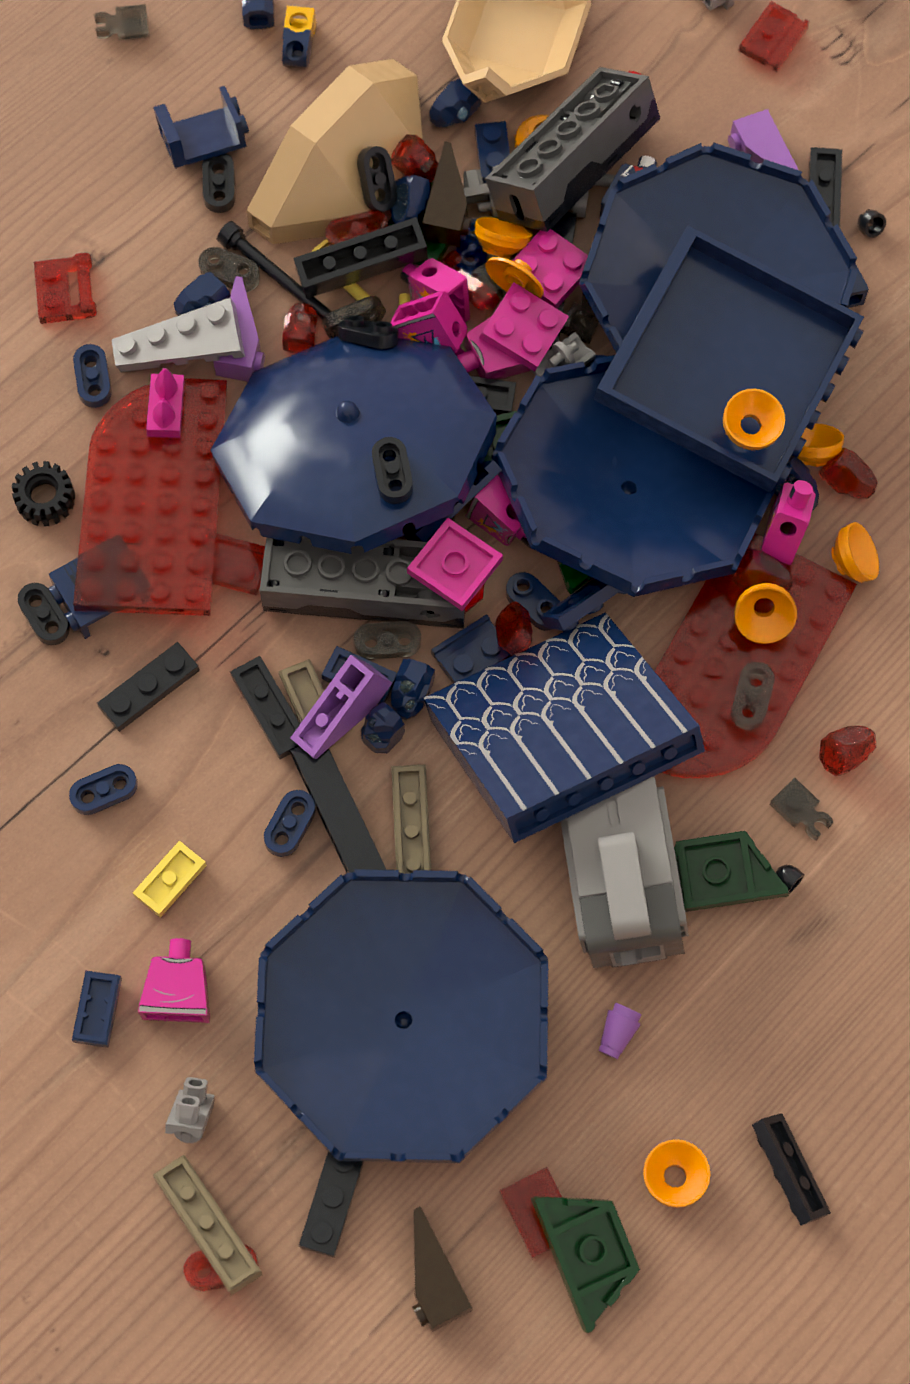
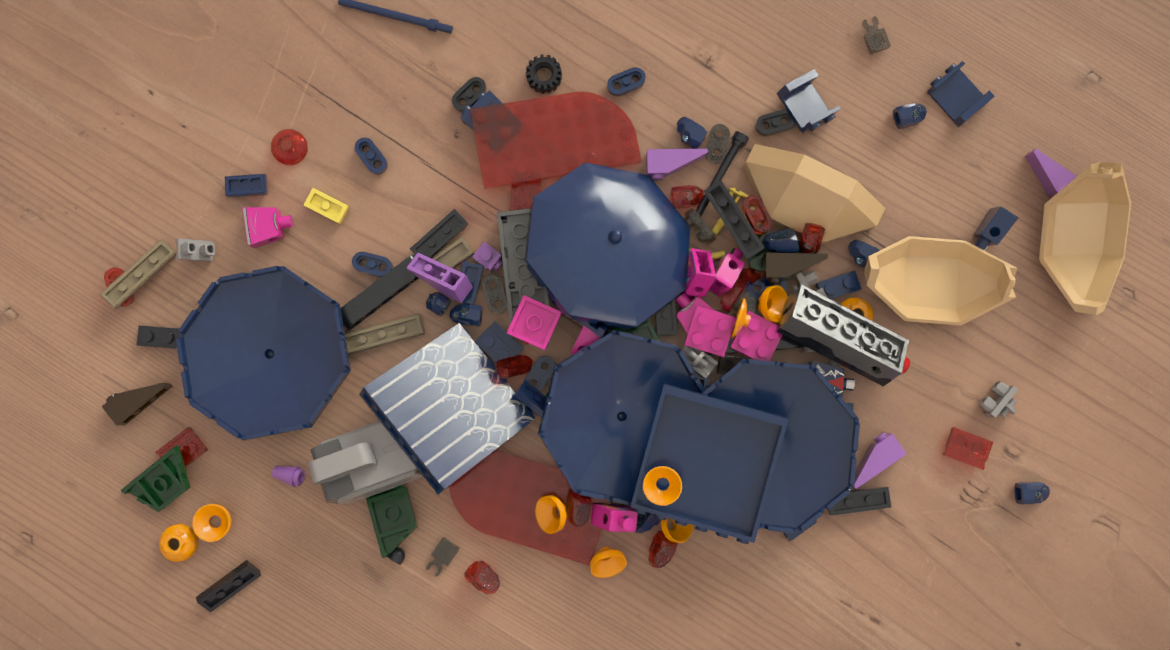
camera: 80 degrees right, 15 degrees up
(54, 289) = (678, 45): clear red plate -> none
(56, 940) = (295, 153): none -> clear red piece
(148, 686) = (439, 165): black plate -> none
(165, 405) = (611, 128): dark pink tile -> none
(190, 336) = (660, 132): wing -> none
(298, 36) = (890, 145): leg -> none
(323, 637) = (488, 257): none -> medium lavender bracket
(367, 333) = (683, 237): black plate -> none
(378, 177) = (790, 216): black plate -> none
(392, 472) = (572, 271): black plate -> none
(686, 1264) = (187, 539): none -> light orange piece
(752, 697) = (499, 515): clear smoke plate -> none
(876, 219) = (843, 535): black hinge -> none

